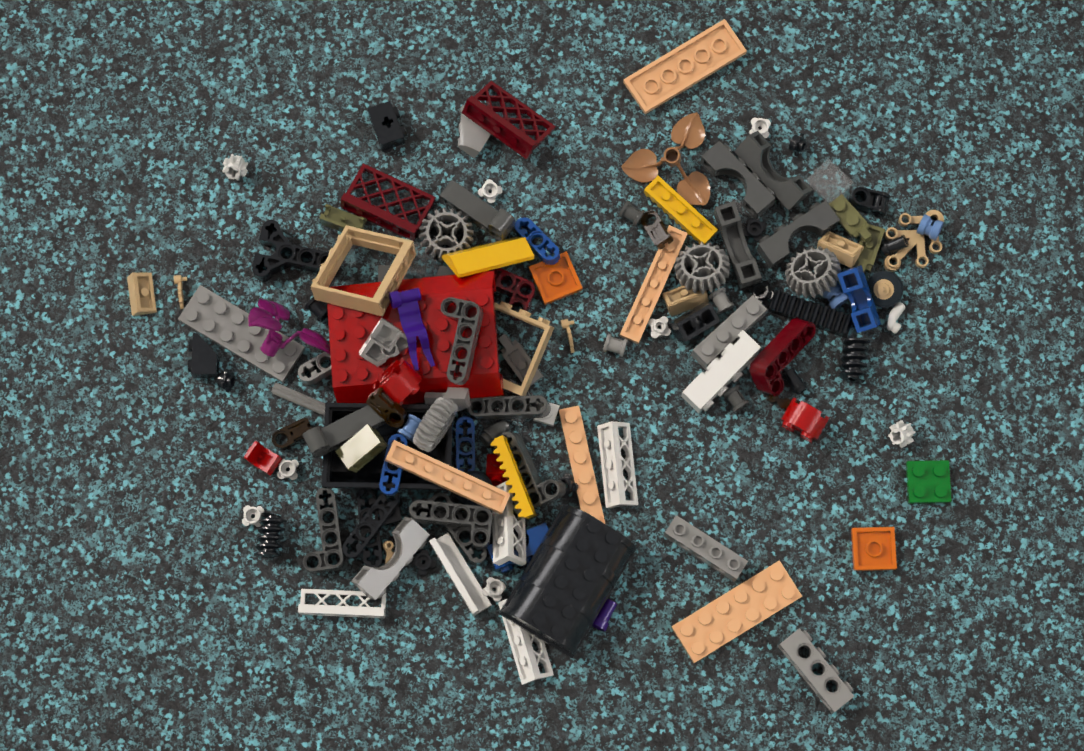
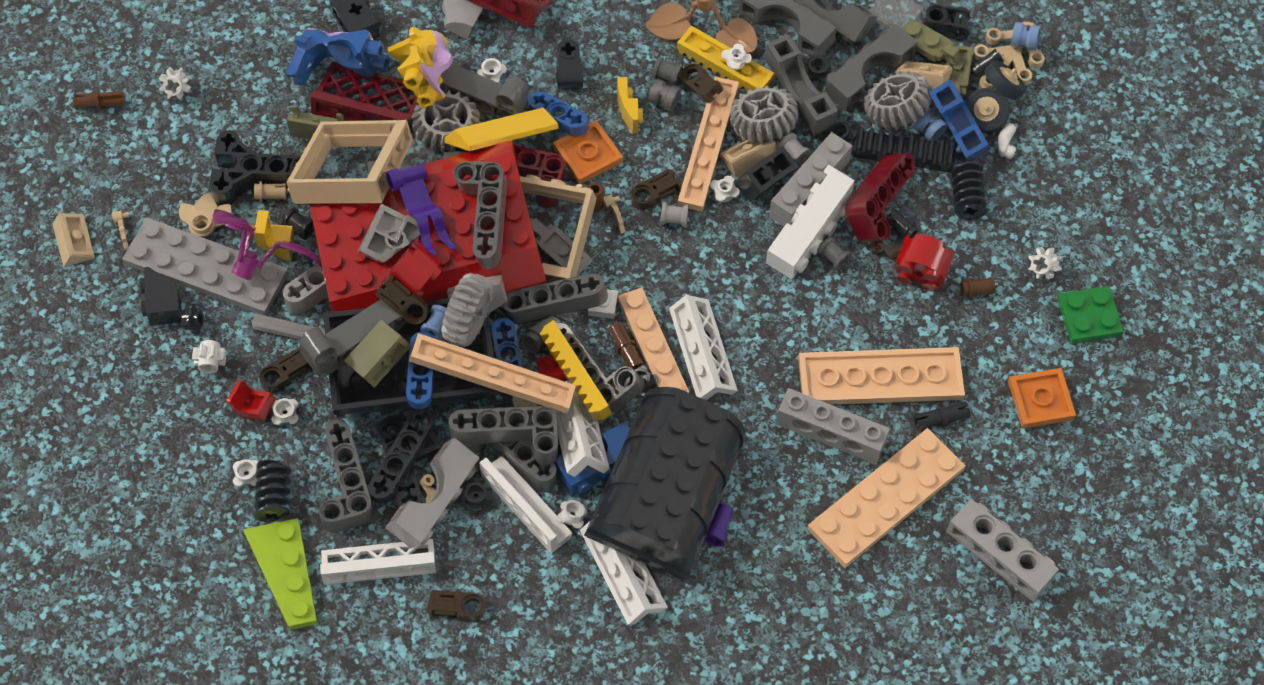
camera: 10 degrees left, 15 degrees down
(173, 172) = (98, 99): none -> reddish brown axle
(235, 415) = (209, 356): none -> white gear
(245, 286) = (201, 214): none -> tan plate
(271, 593) = (284, 565): none -> lime wing
(296, 320) = (268, 234): none -> yellow slope
(302, 276) = (269, 191): none -> tan pin
(374, 160) = (350, 49): none -> blue hips
(394, 647) = (453, 604): none -> dark brown piece
(437, 187) = (422, 62): none -> yellow hips
(552, 200) = (569, 66): none -> black piece
(555, 316) = (599, 192): none -> reddish brown pin
(557, 454) = (625, 345): none -> reddish brown axle
(595, 244) = (628, 105): none -> yellow slope
(605, 317) = (657, 188): none -> dark brown piece
(625, 235) = (664, 95): none -> flat silver wheel
(687, 218) = (736, 63): none -> white plate
(752, 510) = (882, 375): none -> light nougat plate
(793, 551) = (942, 416): none -> black pin
(843, 445) = (977, 287): none -> reddish brown pin
(904, 266) = (1005, 80): none -> black wheel

